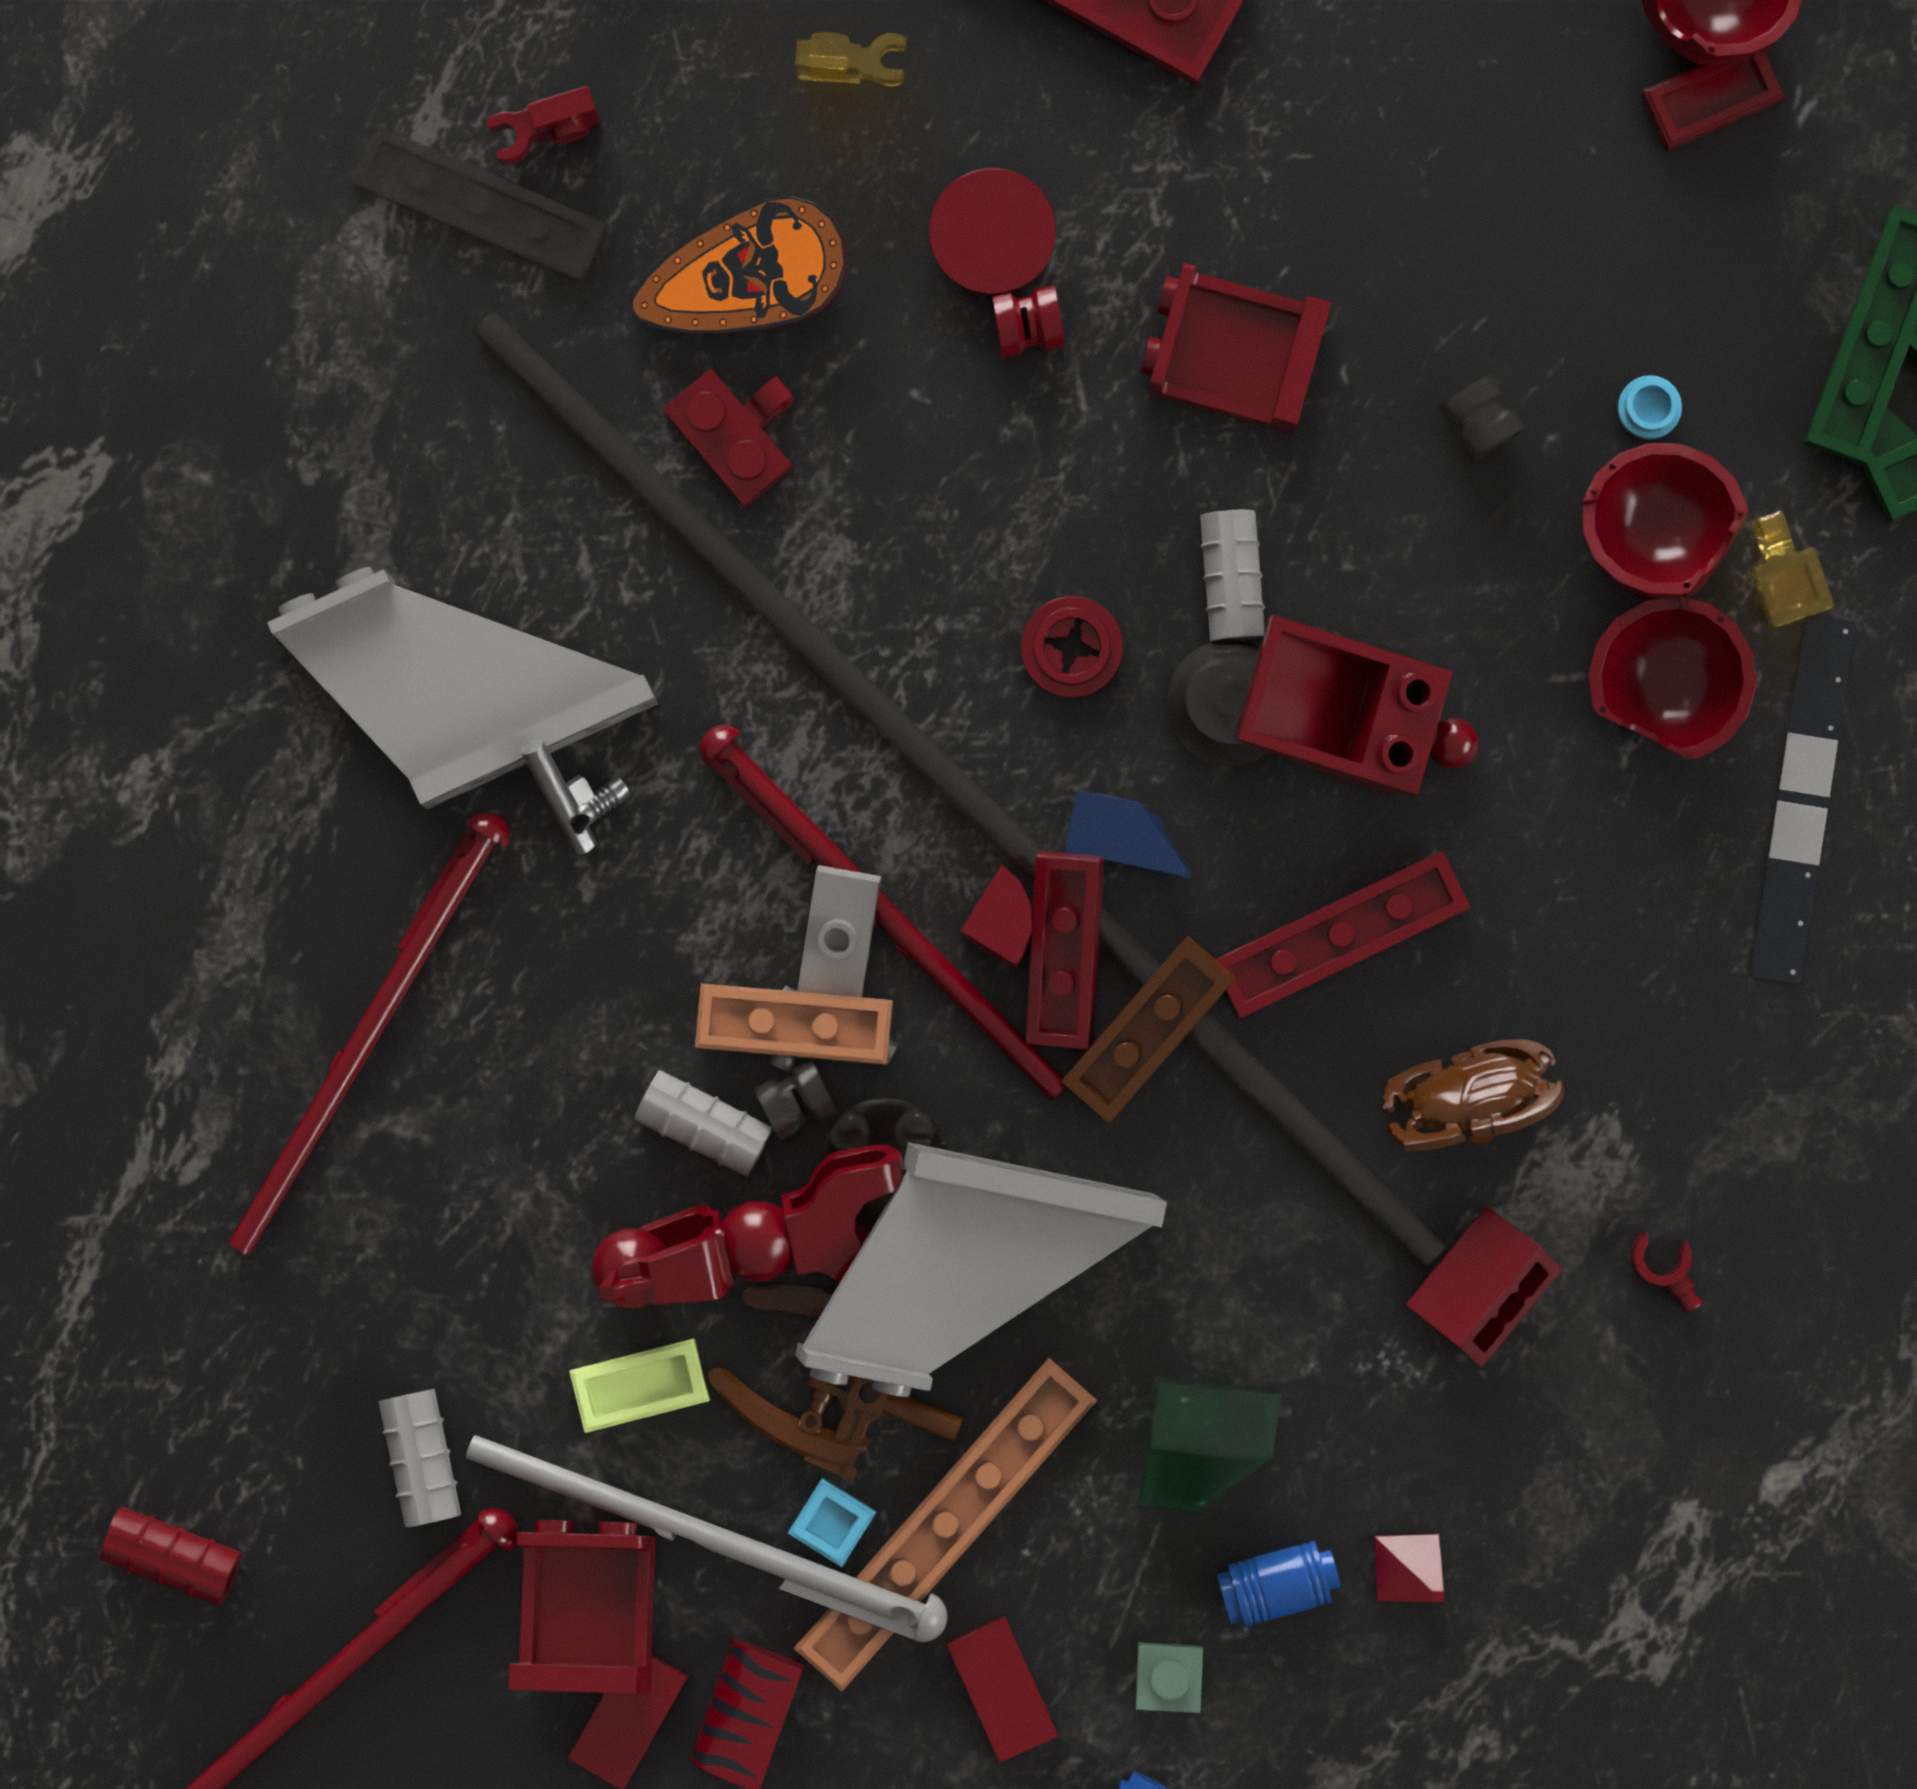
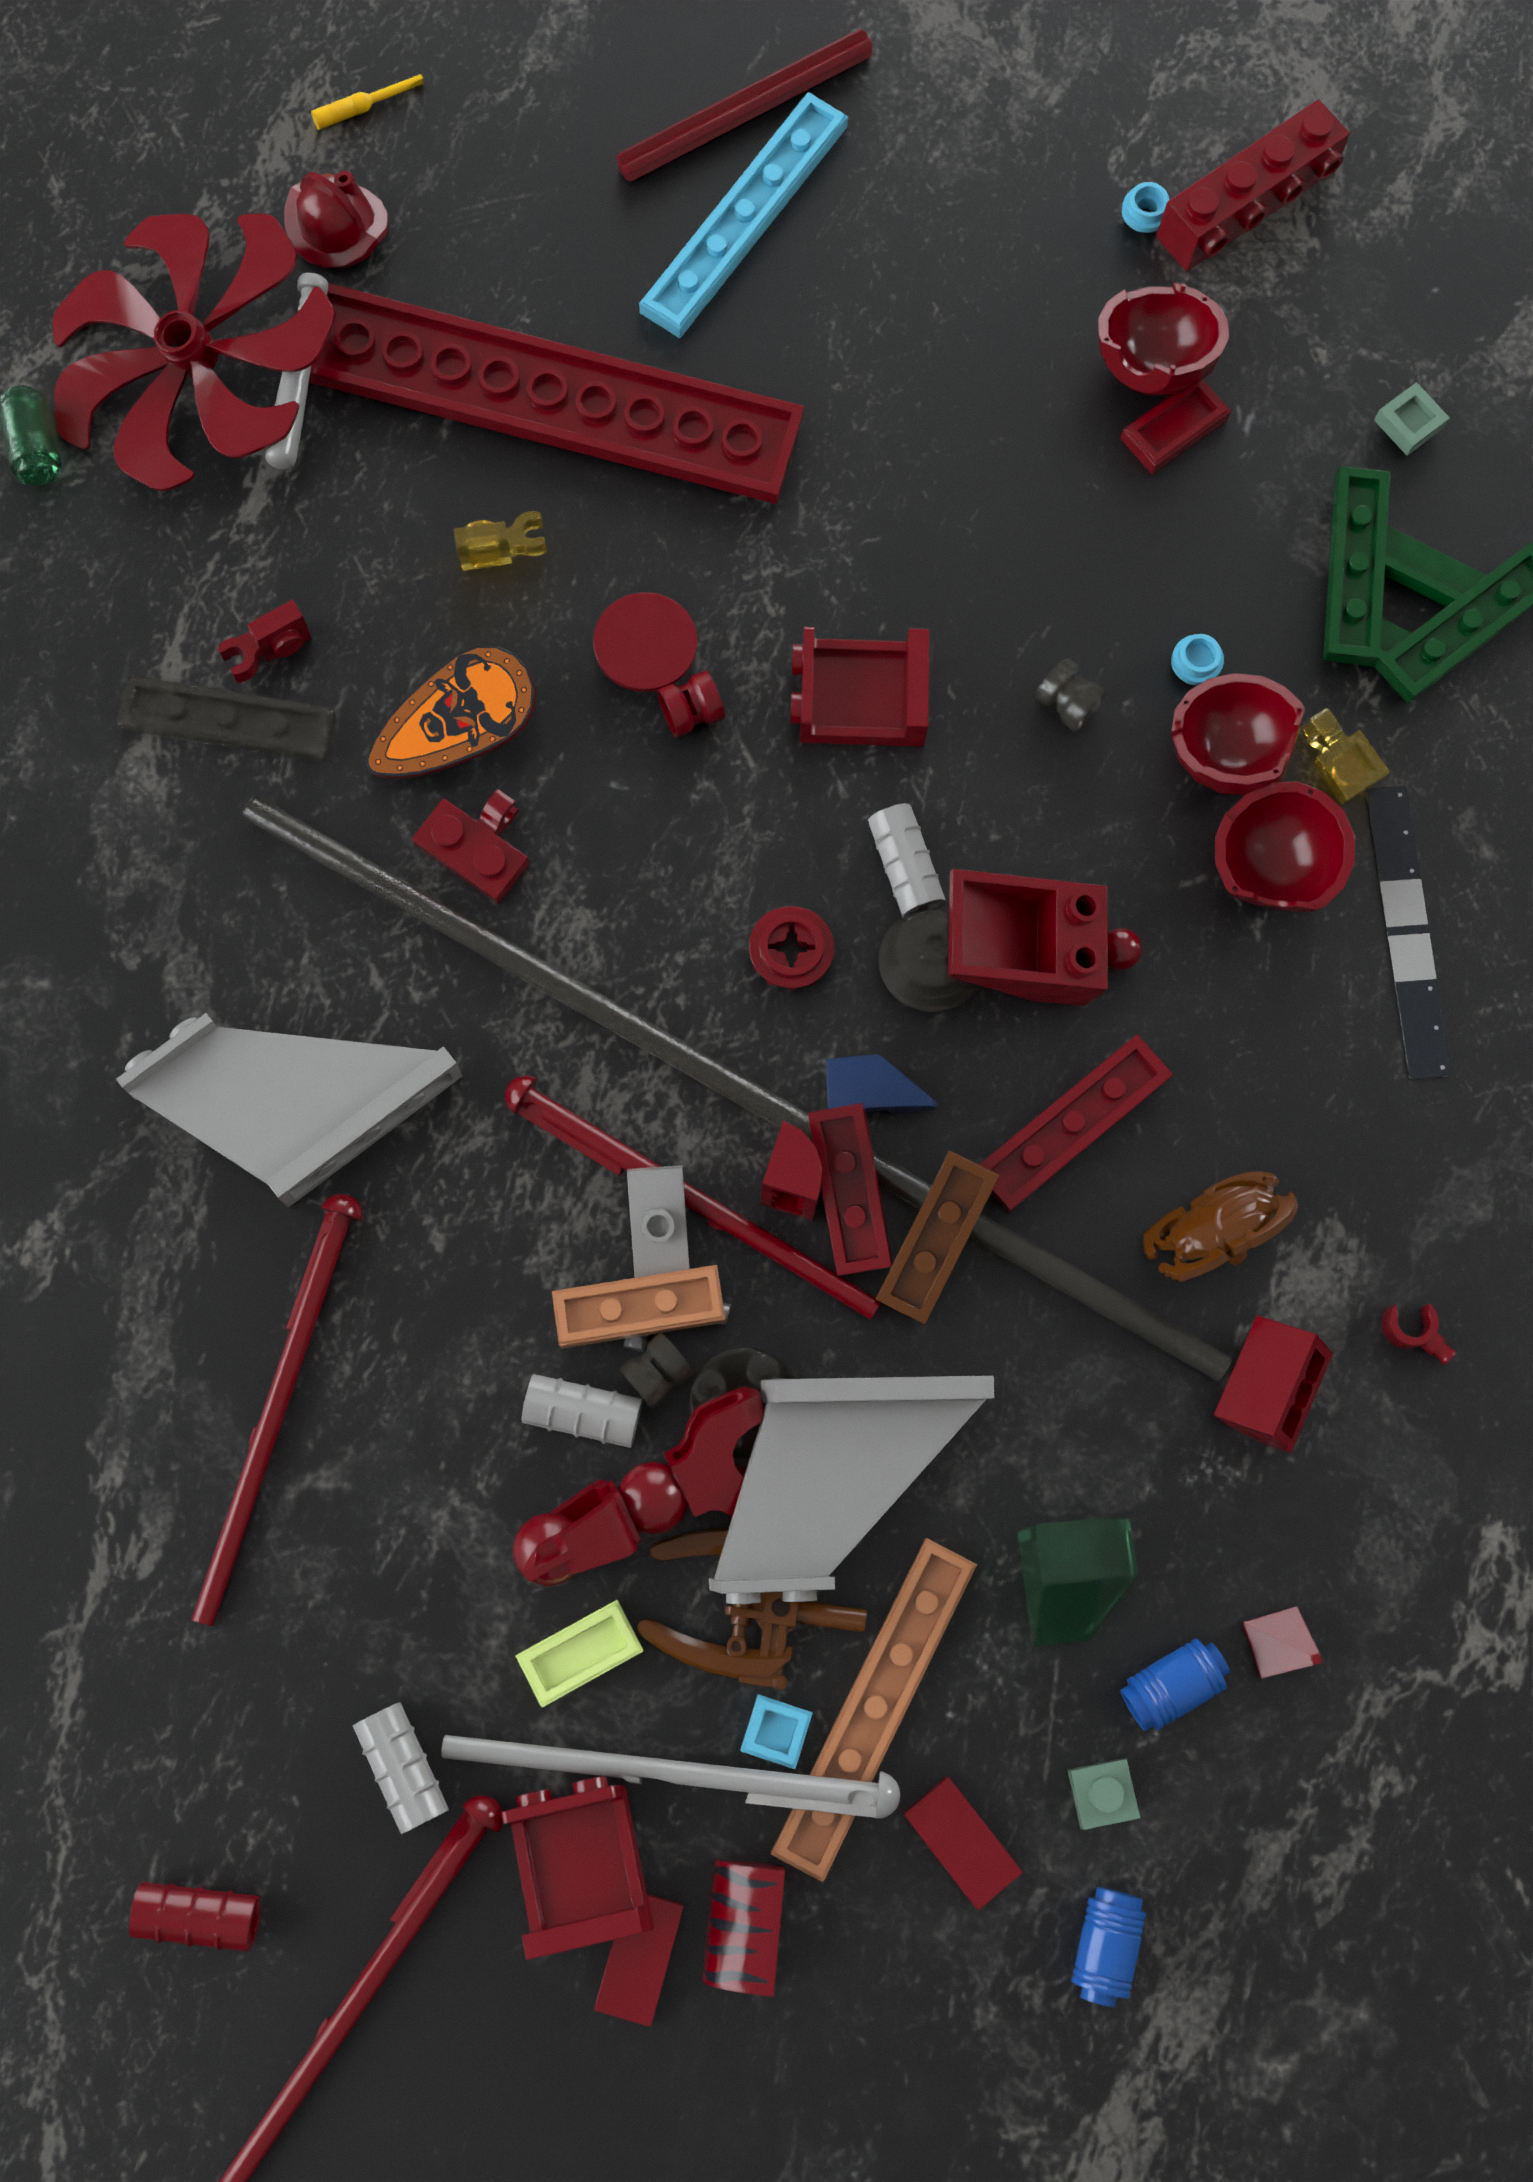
camera: 25 degrees left, 10 degrees down
(572, 797) = (407, 1163): flat silver hose -> none

